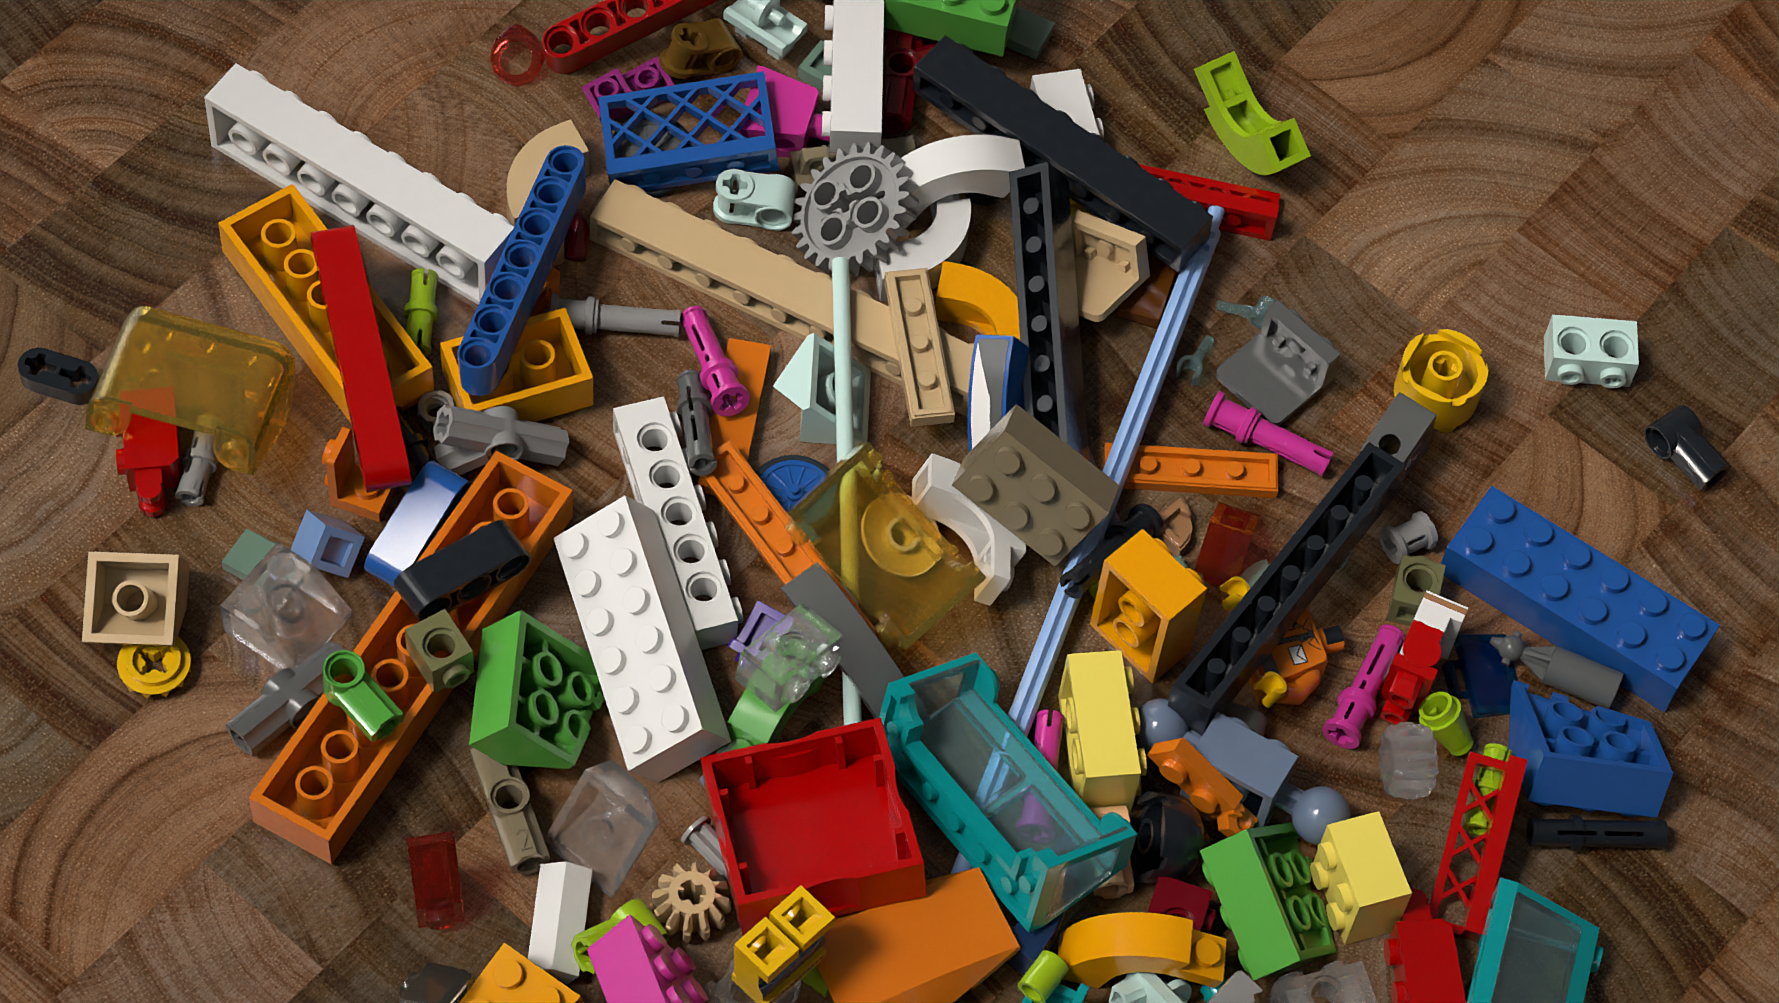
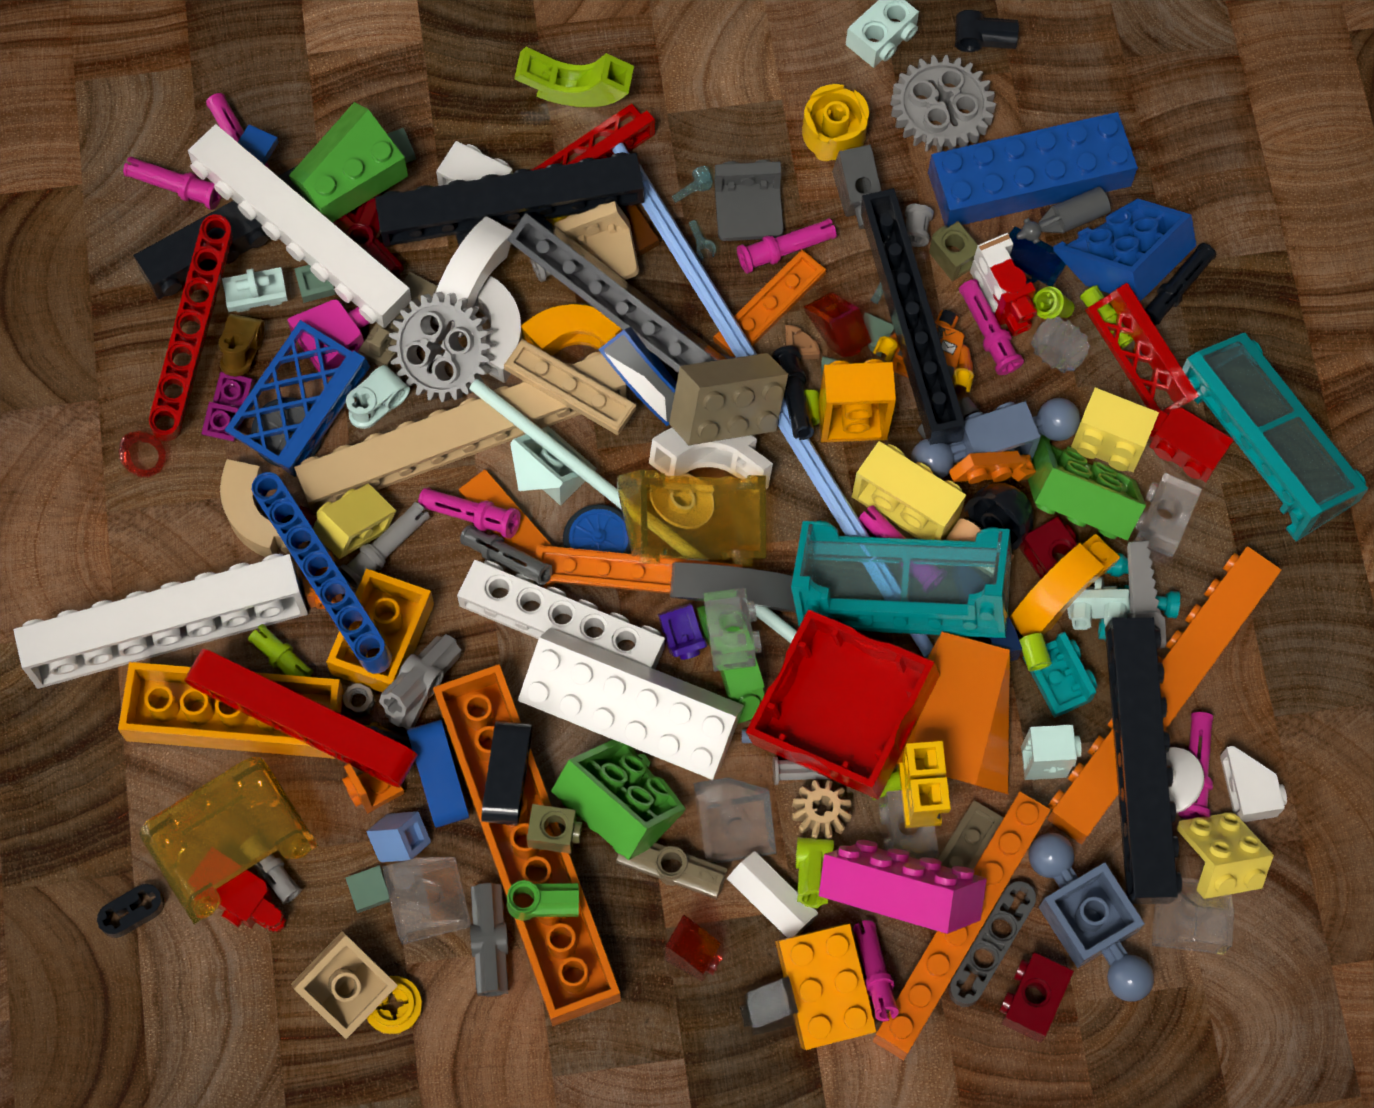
camera: 45 degrees left, 10 degrees up
(607, 266) = (353, 520): none -> light yellow brick
(1604, 481) = (967, 94): none -> light grey gear

